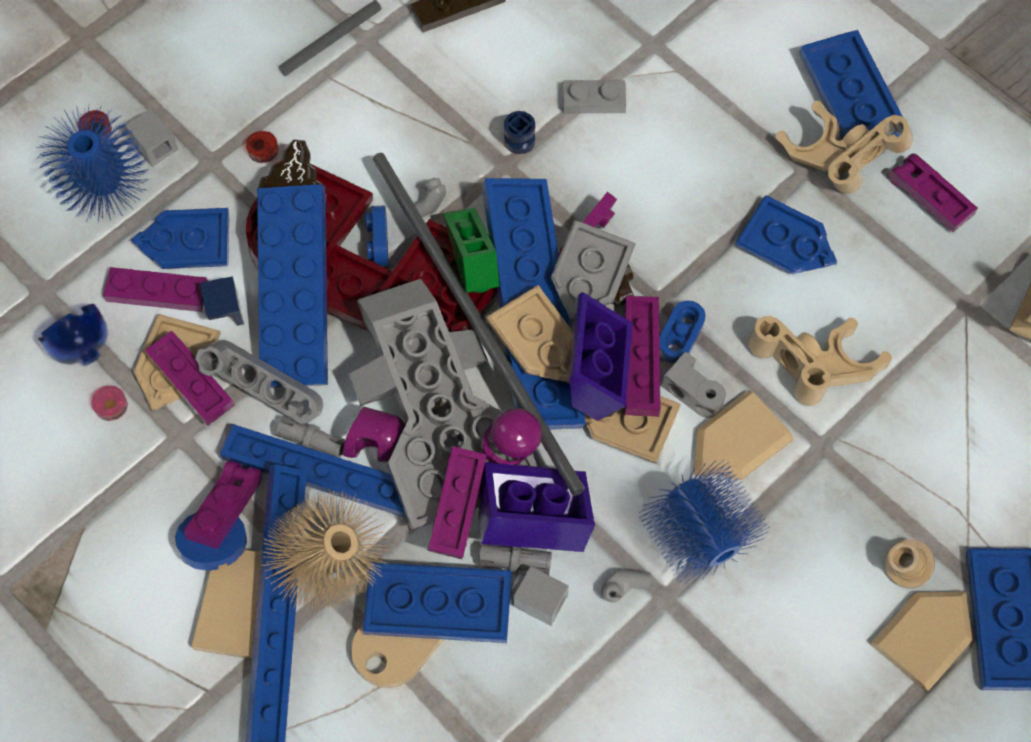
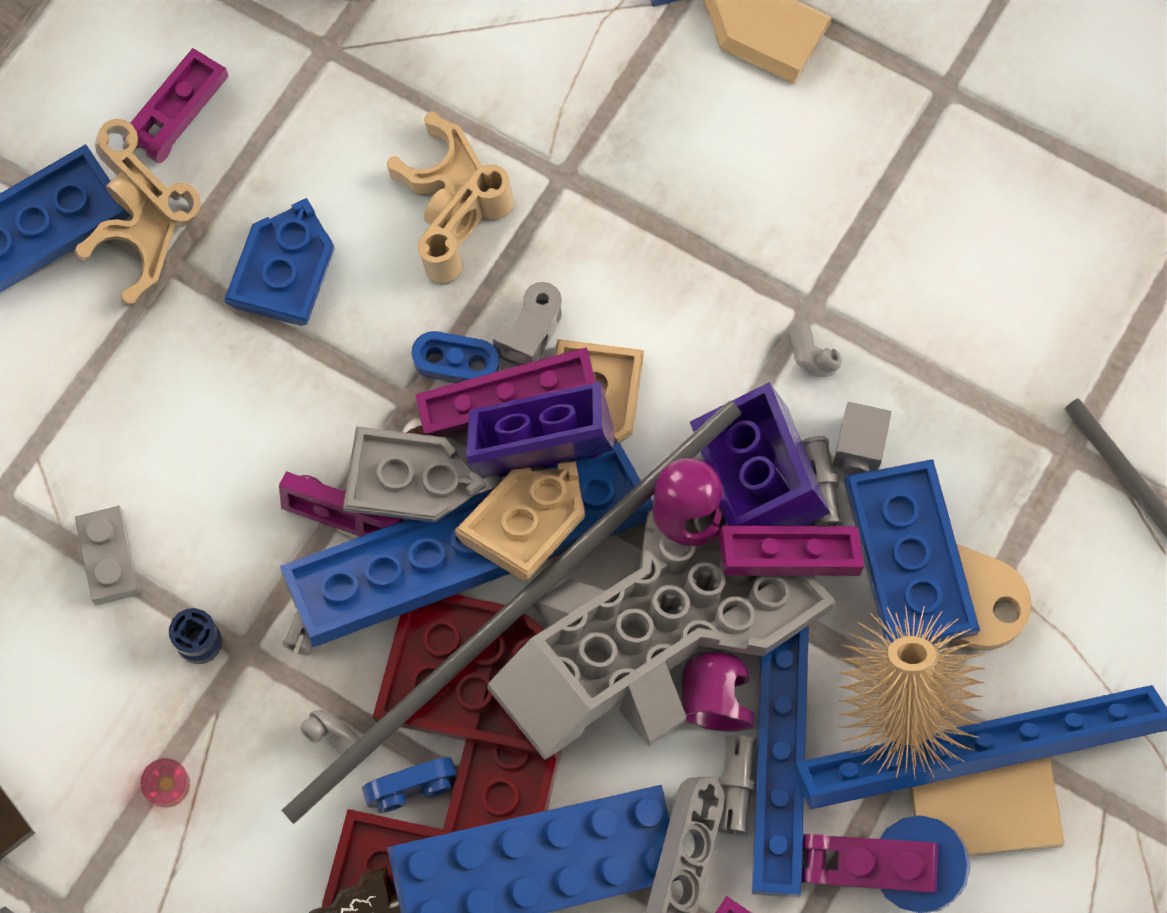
camera: 105 degrees left, 5 degrees up
(430, 103) = (165, 783): none -> clear pink tile
(472, 250) = (416, 634): green slope -> none
(696, 510) = (727, 260): blue piece -> none
(740, 434) = (584, 264): tan tile -> none
(910, 563) = (689, 55): tan piece -> none

